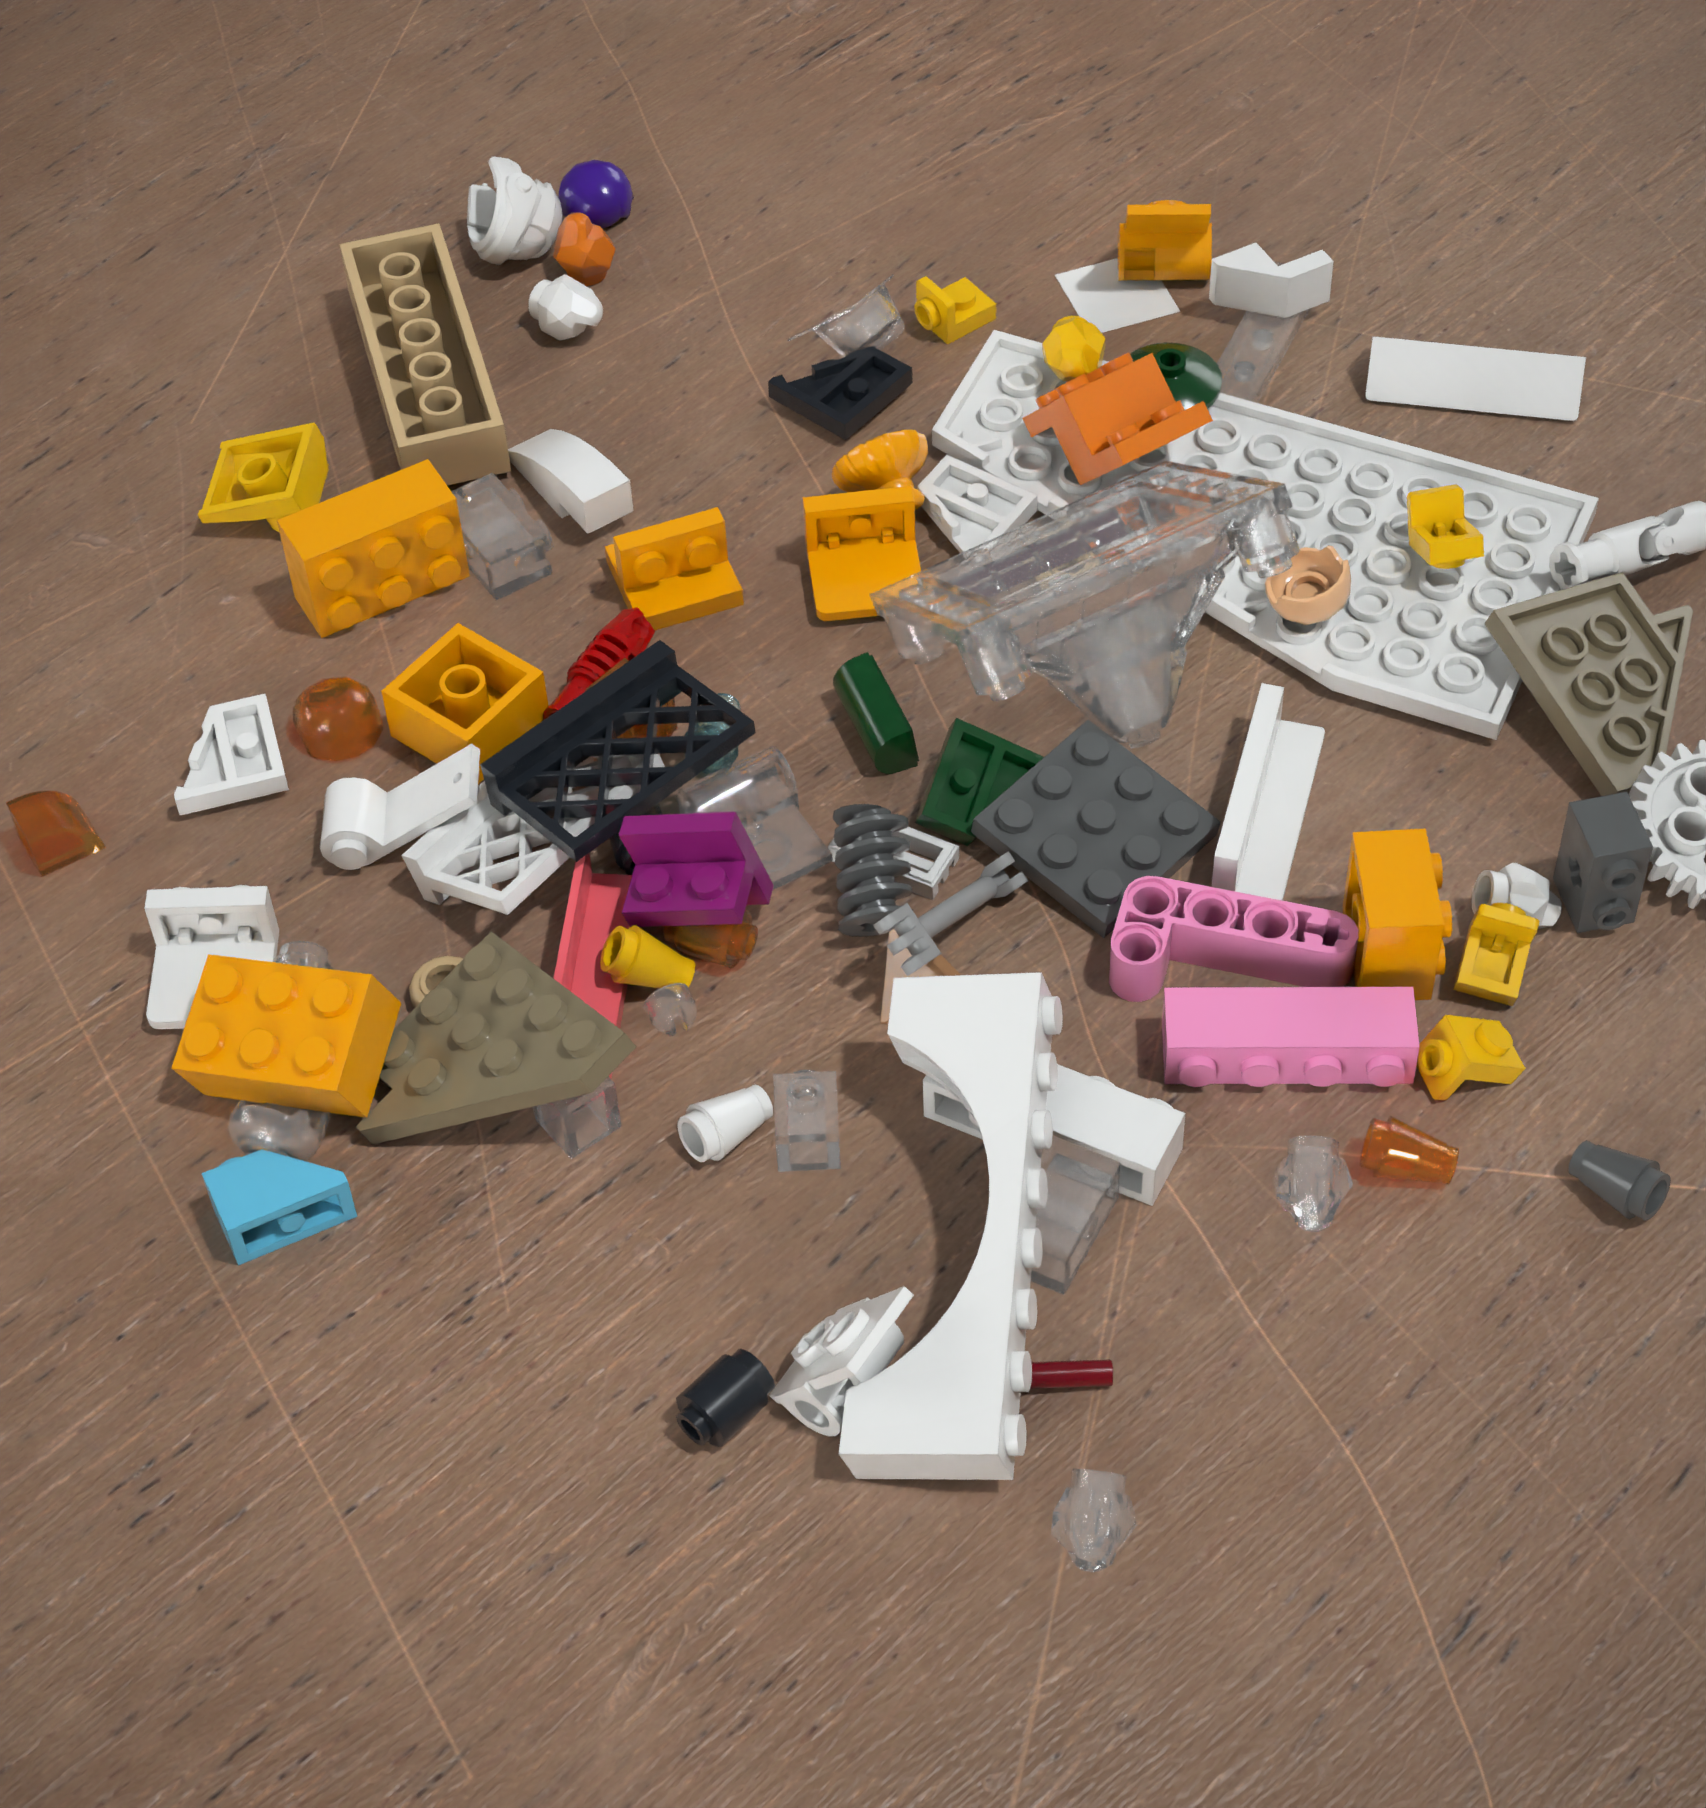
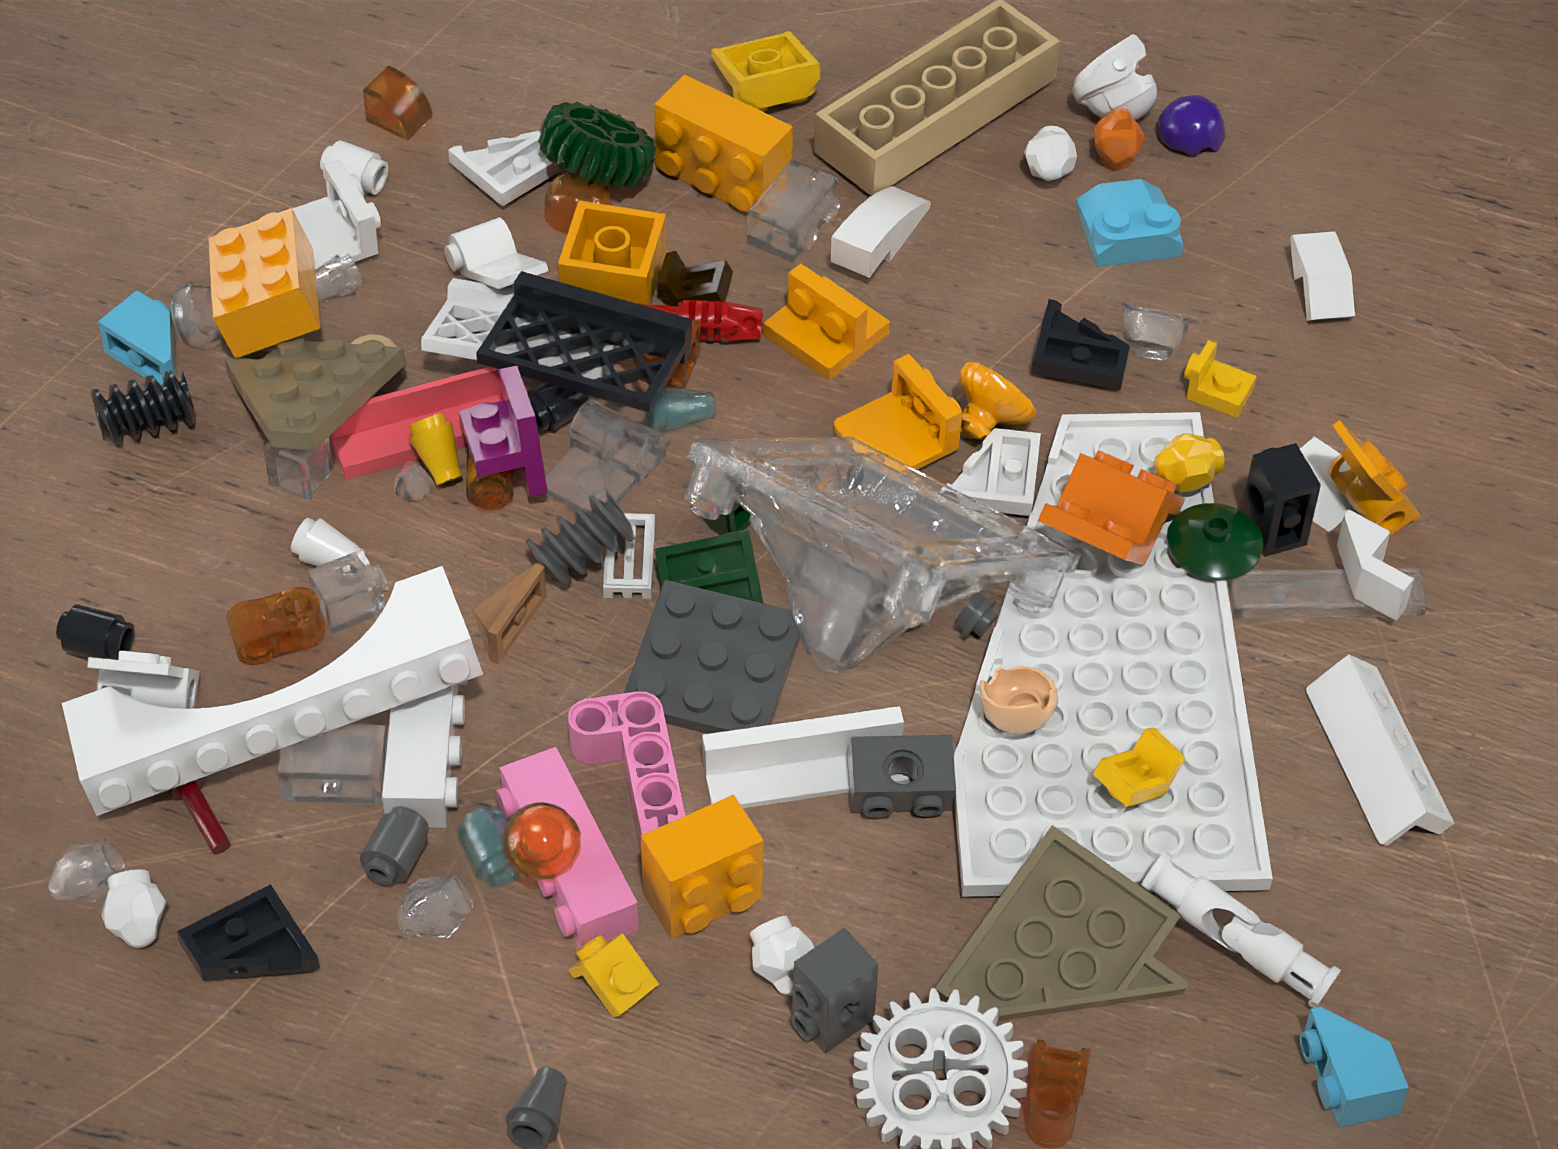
camera: 60 degrees right, 0 degrees up
(119, 904) = (365, 164): none -> white brick
(288, 655) = (596, 145): none -> dark green gear
(386, 1237) = (143, 406): none -> black piece
(552, 648) = (697, 282): none -> dark brown bracket
(694, 292) = (1129, 223): none -> medium azure slope
(818, 1205) = (272, 626): none -> clear orange piece
(849, 172) = (1325, 275): none -> white slope
(917, 932) = (514, 575): light grey hinge -> none
(1154, 299) = (1281, 497): none -> black brick
(1172, 1480) = (133, 907): none -> white rock
(1207, 1193) = (394, 846): none -> dark grey brick
(1249, 1105) = (483, 843): none -> clear light blue brick
(1267, 1380) = (248, 940): none -> black wing
(1301, 1036) = (541, 841): none -> clear orange hair
(1335, 722) = (921, 757): none -> dark grey brick
(1406, 1153) = (495, 959): clear orange cone -> none
(1496, 952) = (714, 956): yellow bracket -> none

